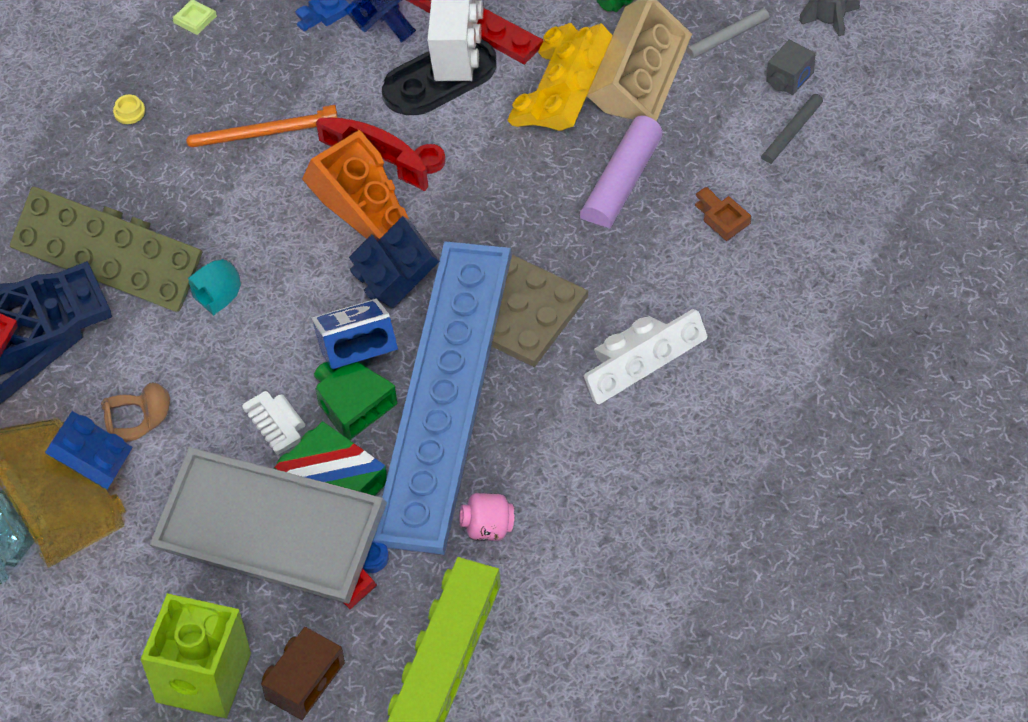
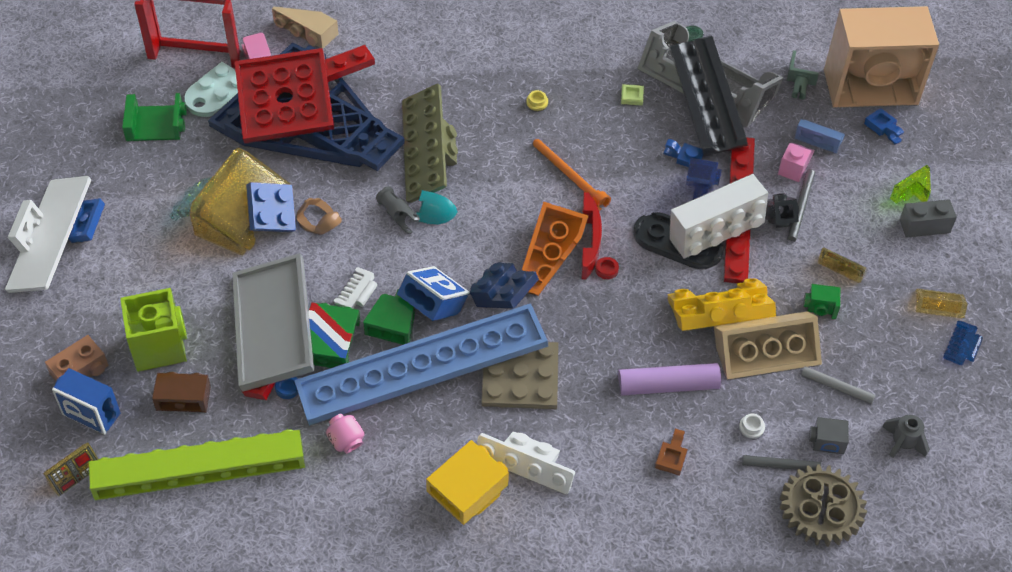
camera: 55 degrees right, 0 degrees up
(183, 322) = (396, 207): none -> dark grey piece
(642, 416) = (468, 482): none -> yellow brick
(731, 129) = (752, 426): none -> white plate
(868, 116) = (847, 510): none -> dark tan gear

